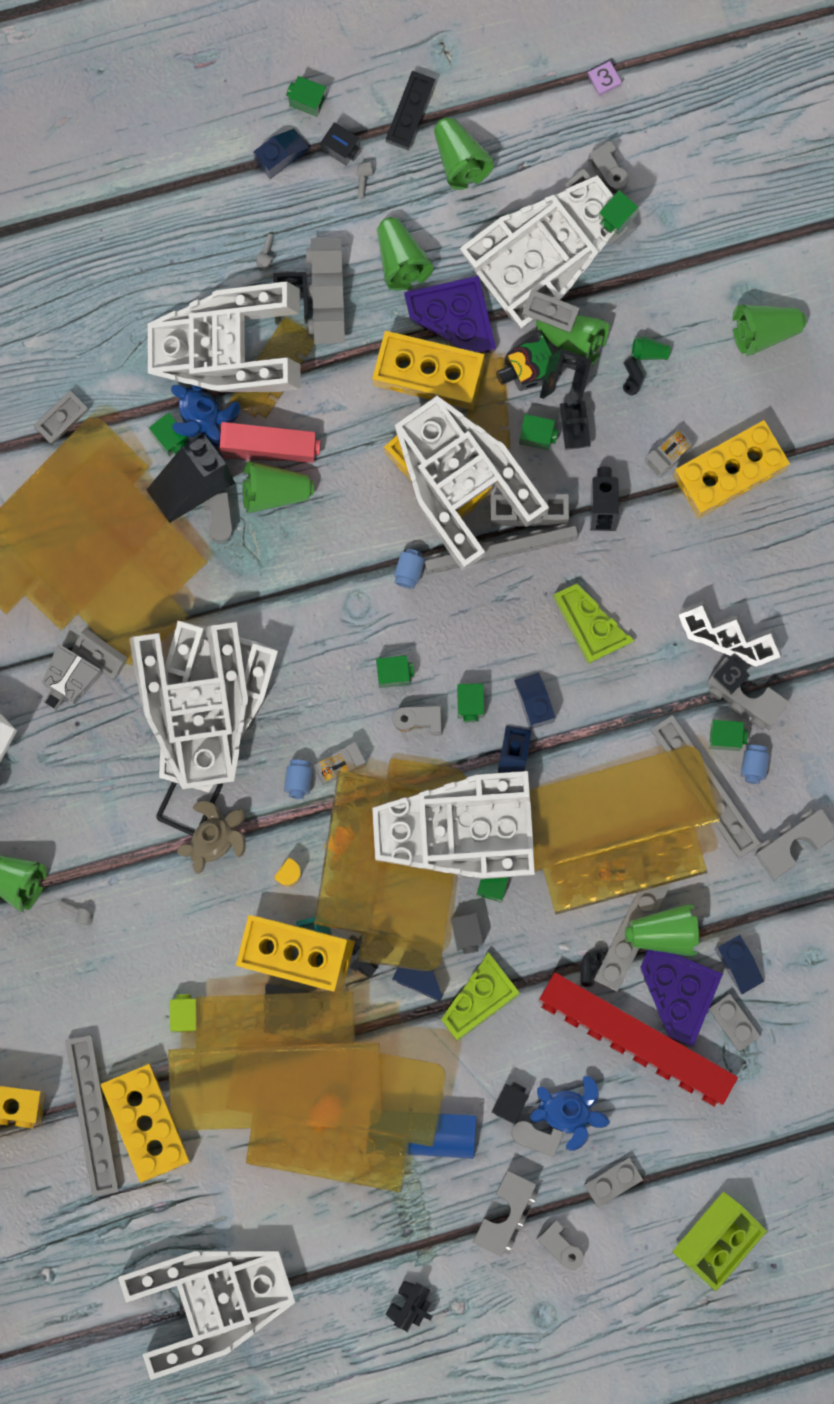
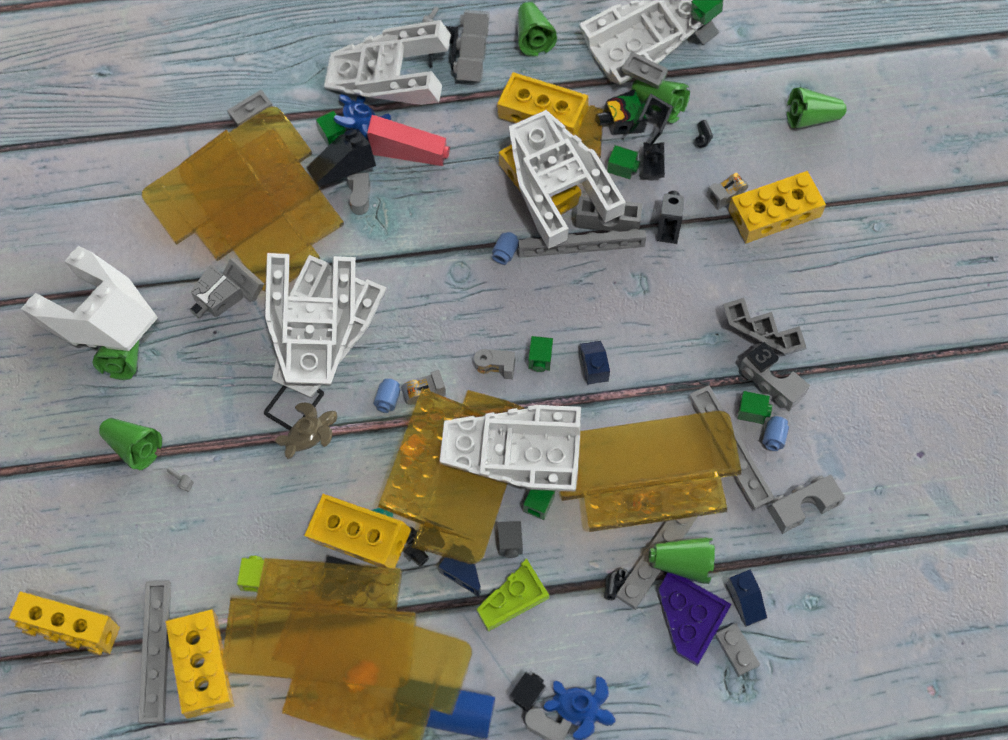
camera: 10 degrees right, 15 degrees down
(273, 487) = (407, 174): bright green cone -> none
(284, 343) = (406, 112): clear yellow windscreen -> none
(289, 874) = (365, 470): yellow brick -> none
(394, 671) = (480, 322): green brick -> none
(454, 313) = (568, 70): dark purple plate -> none
(514, 750) = (572, 393): dark blue slope -> none
(589, 625) = (648, 311): lime wing -> none
(638, 1039) = (650, 651): red brick -> none
(649, 349) = (720, 116): green cone -> none

